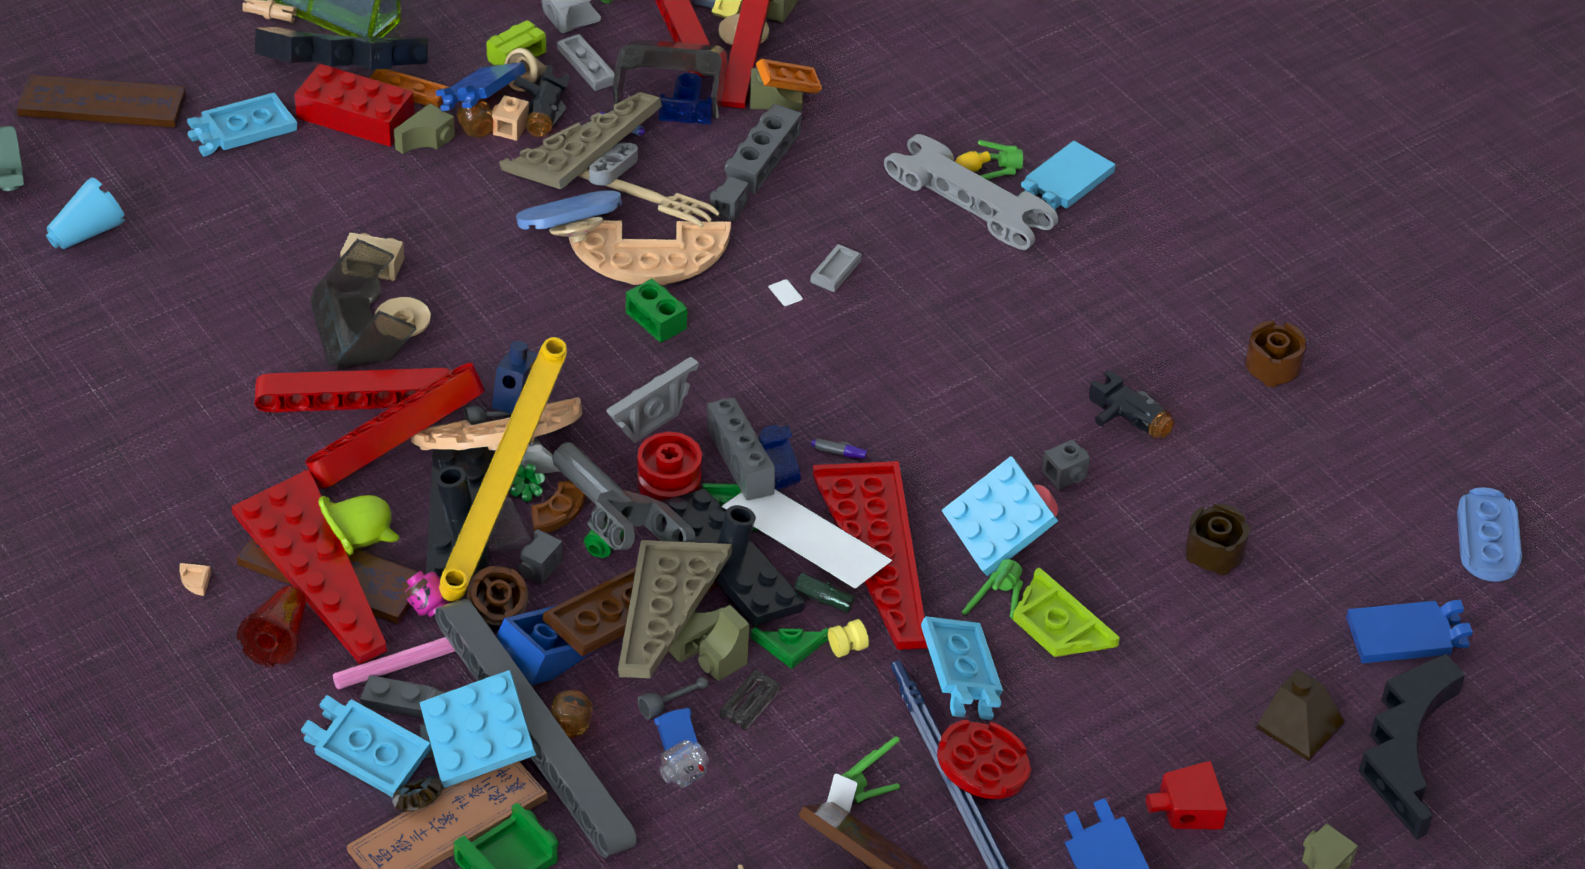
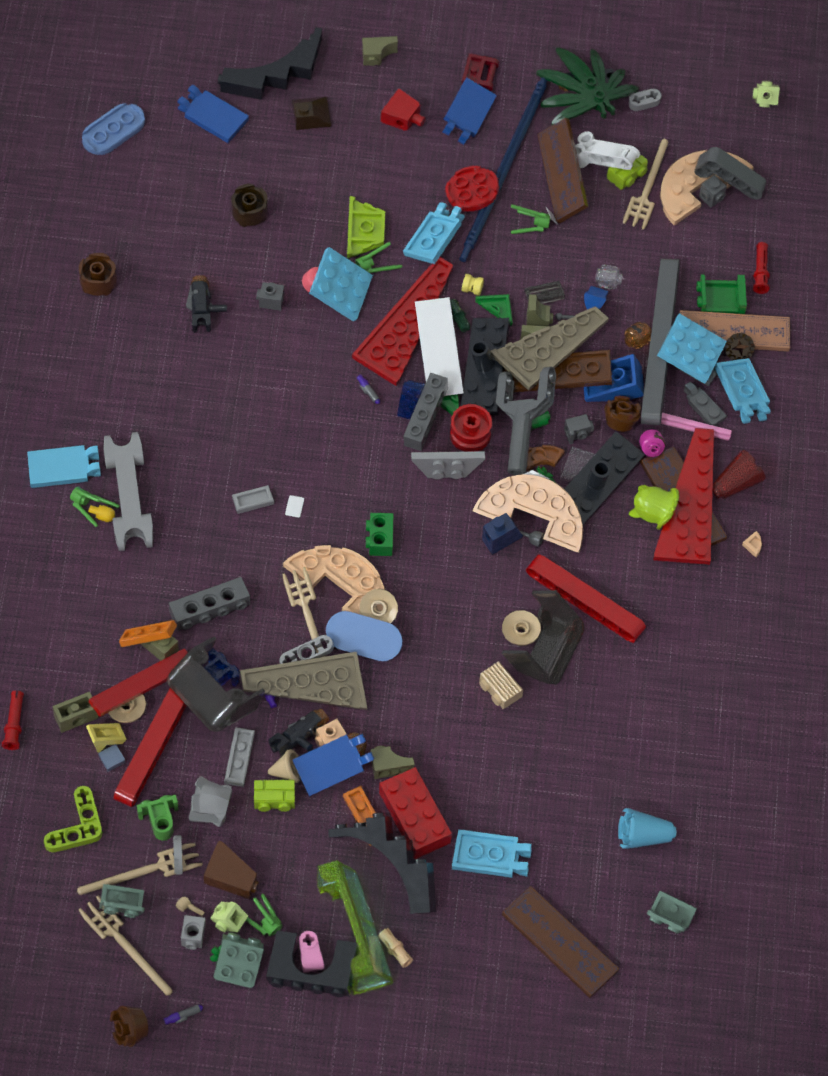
camera: 140 degrees left, 15 degrees up
(395, 425) = (579, 544): red beam -> none
(502, 470) = (565, 461): yellow piece -> none
(730, 198) = (265, 581): dark grey brick -> none

